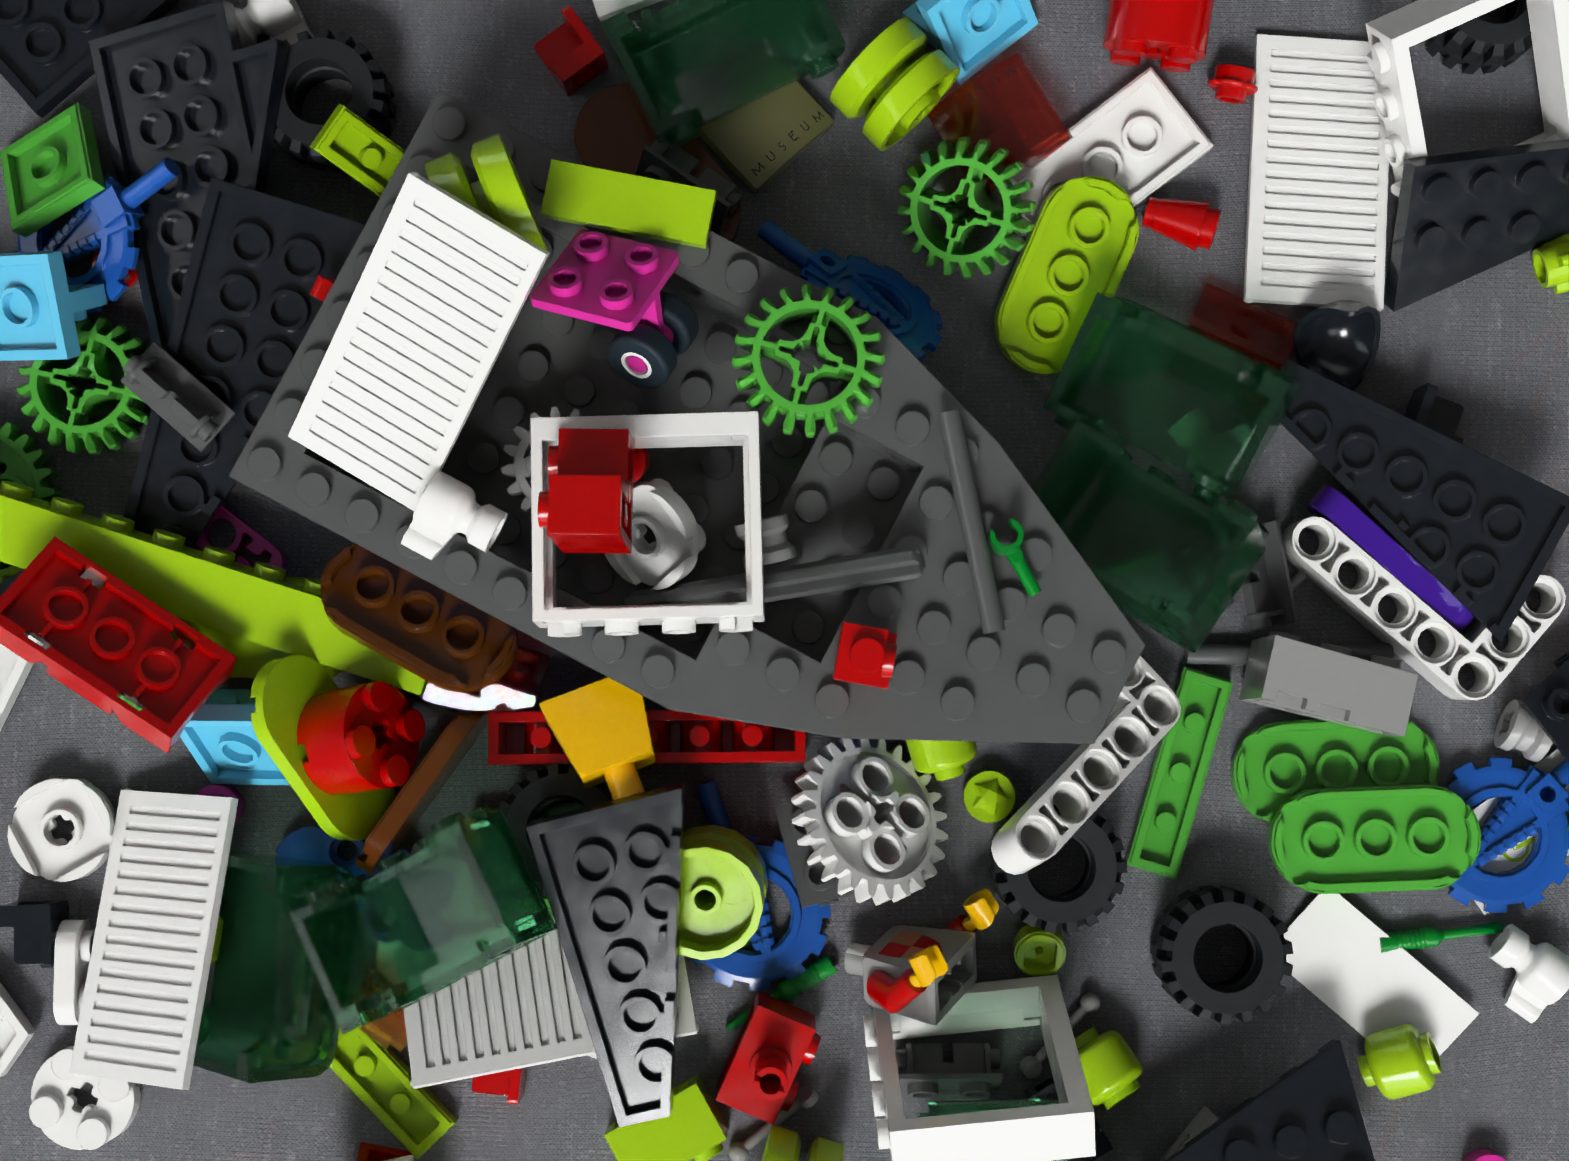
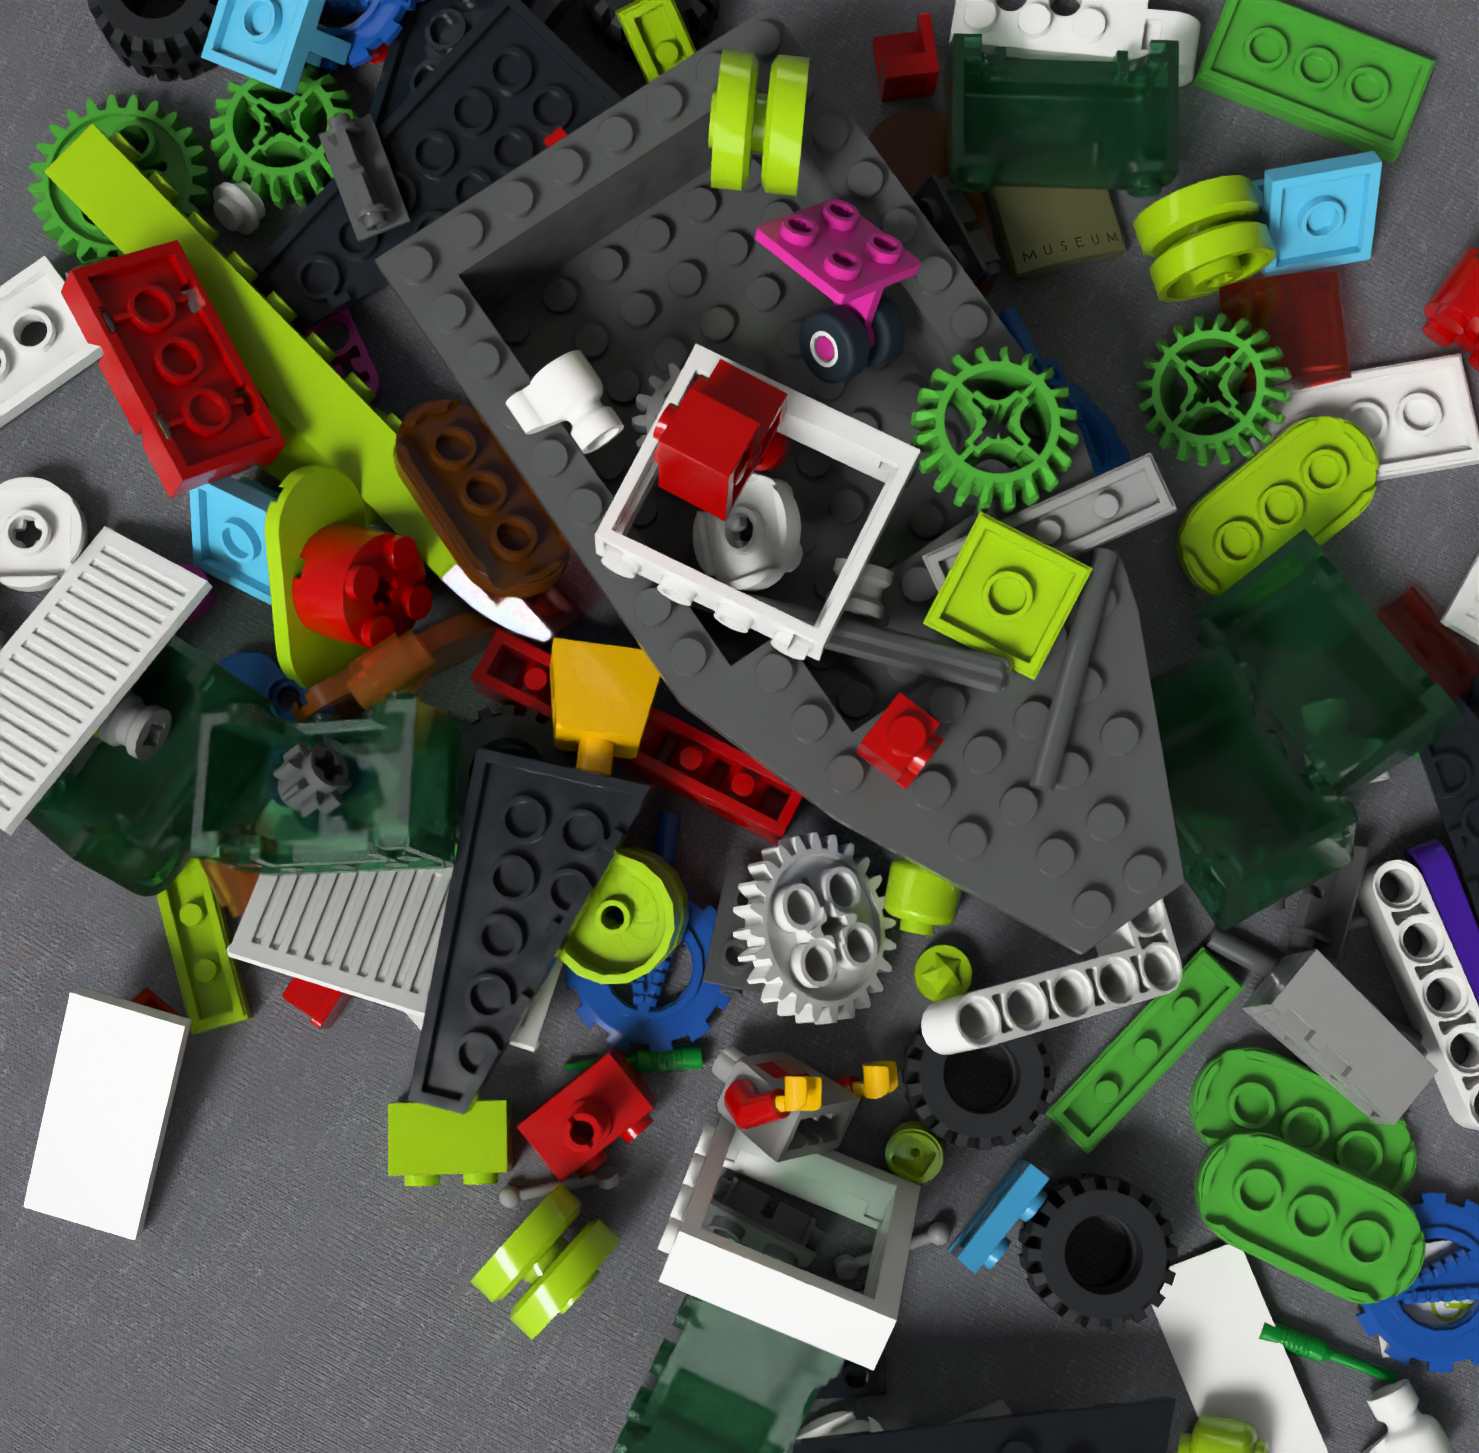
camera: 20 degrees right, 5 degrees down
(84, 468) = (238, 207): none -> white plate
(239, 941) = (137, 727): none -> light grey wheel
(406, 916) = (312, 778): none -> dark grey gear
(417, 341) = (627, 211): white window -> none
(422, 799) = (390, 666): none -> clear orange brick
(628, 204) = (896, 197): lime tile -> none
(888, 491) = (1007, 595): none -> lime tile
(895, 421) = (1082, 515): none -> light grey tile
(1016, 557) = (1100, 724): green hand -> none
(1108, 1066) = (926, 1306): lime head -> none
(1126, 989) = (1014, 1197): none -> dark azure plate
(1183, 221) = (1419, 515): red cone -> none

